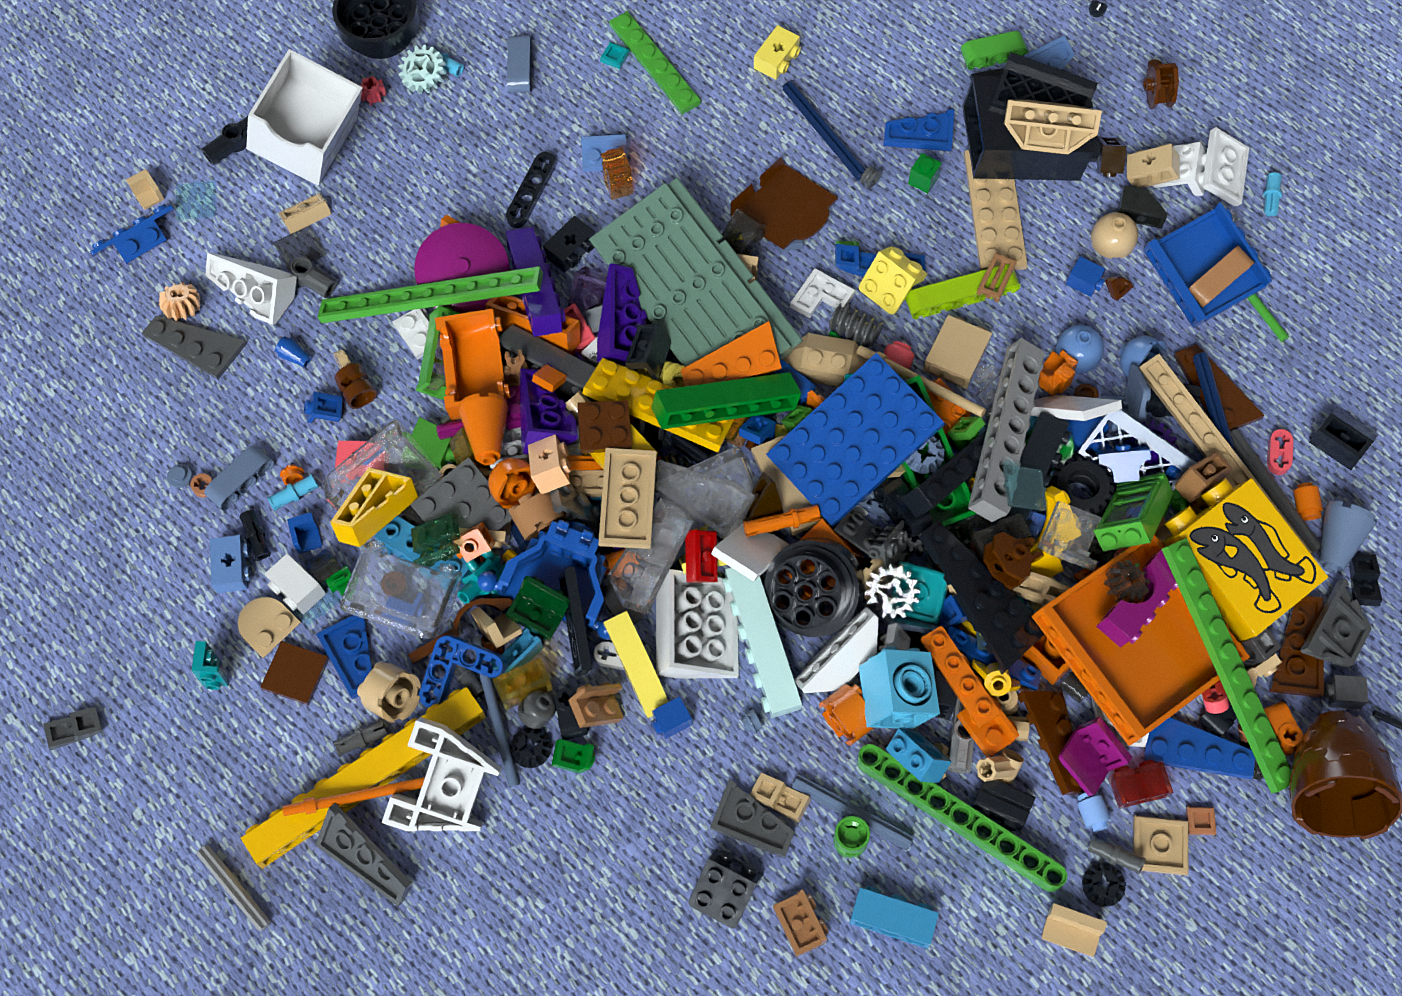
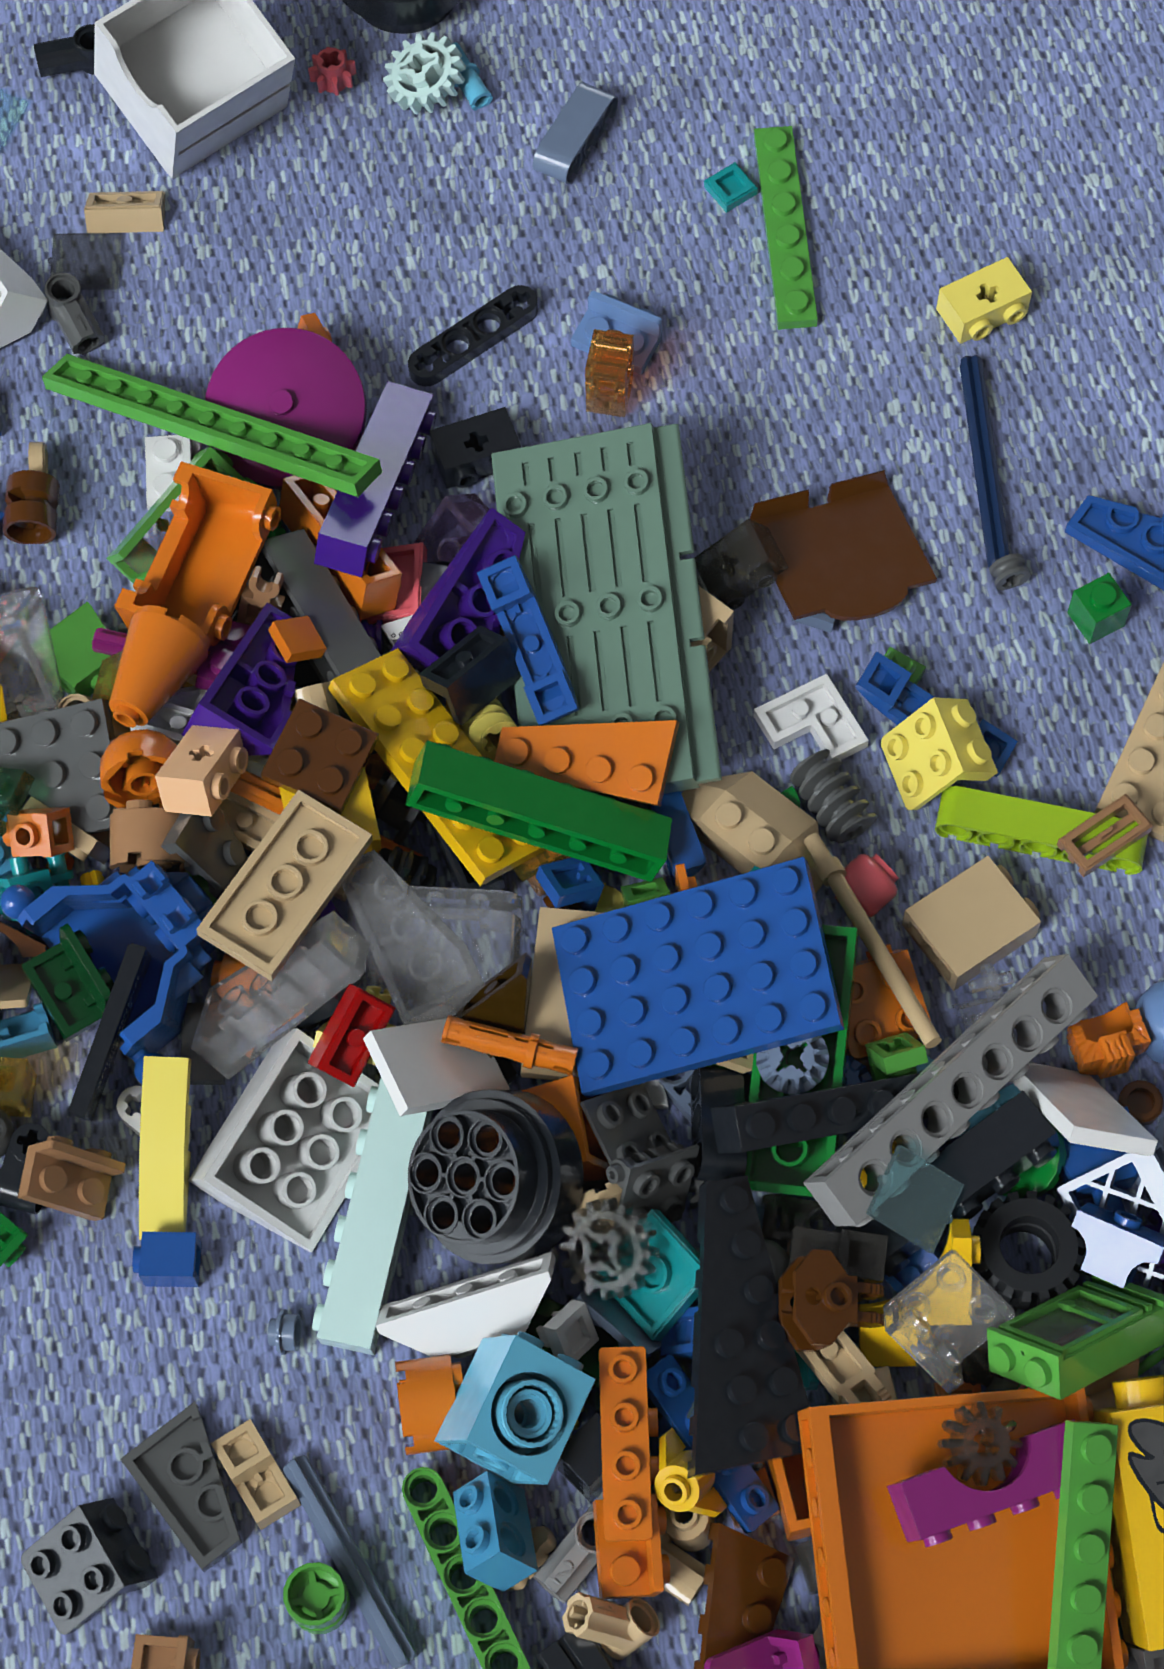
camera: 30 degrees right, 0 degrees up
(672, 322) = (530, 640): none -> blue slope

